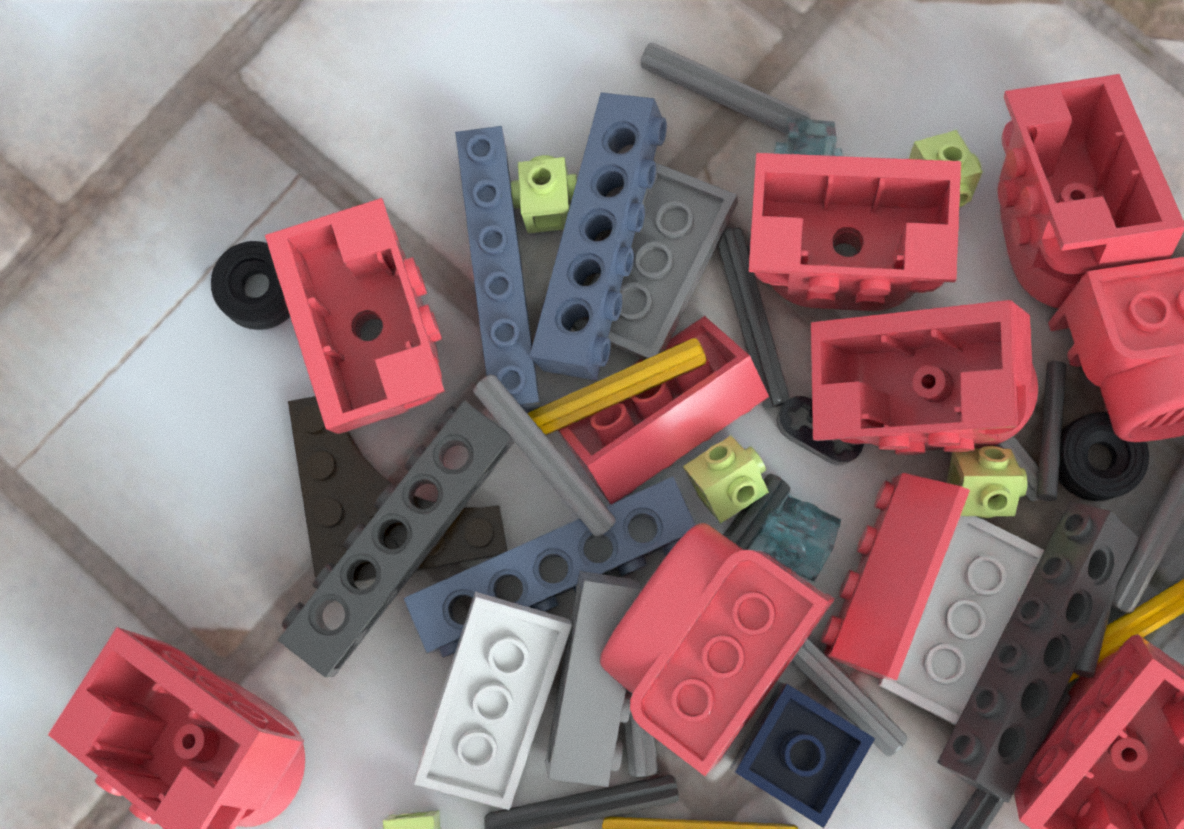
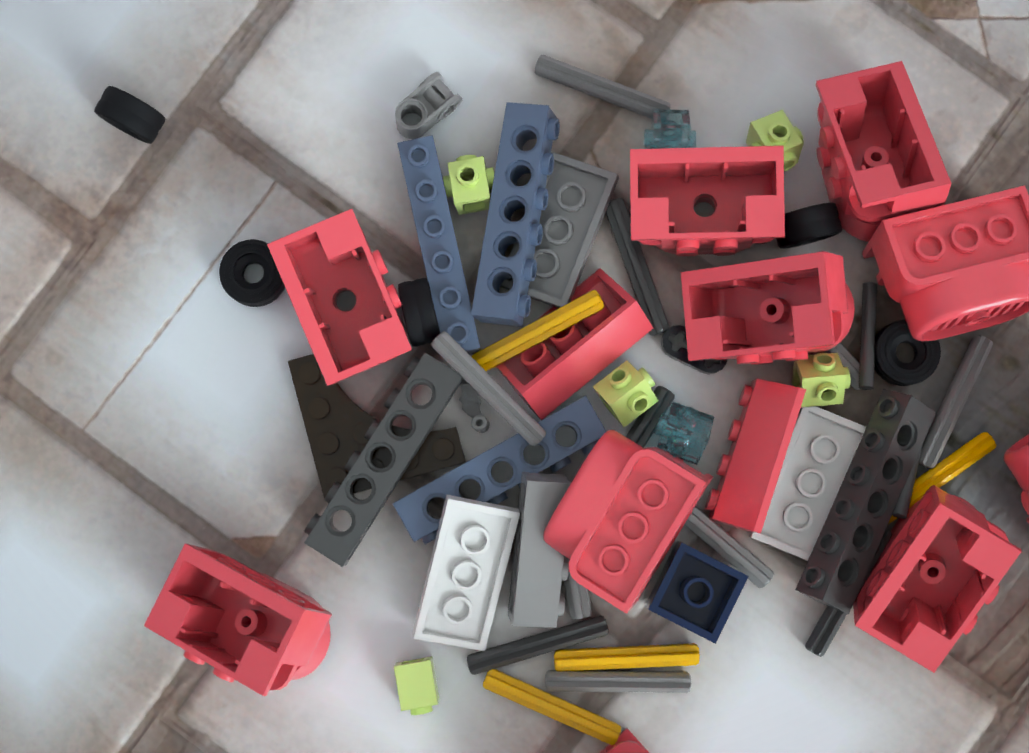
camera: 10 degrees left, 5 degrees up
(120, 73) = (129, 114): none -> black tyre
(461, 348) = (418, 311): none -> black tyre
(504, 88) = (431, 102): none -> light grey piece
(521, 480) = (471, 403): none -> light grey piece
(985, 278) = (810, 225): none -> black tyre

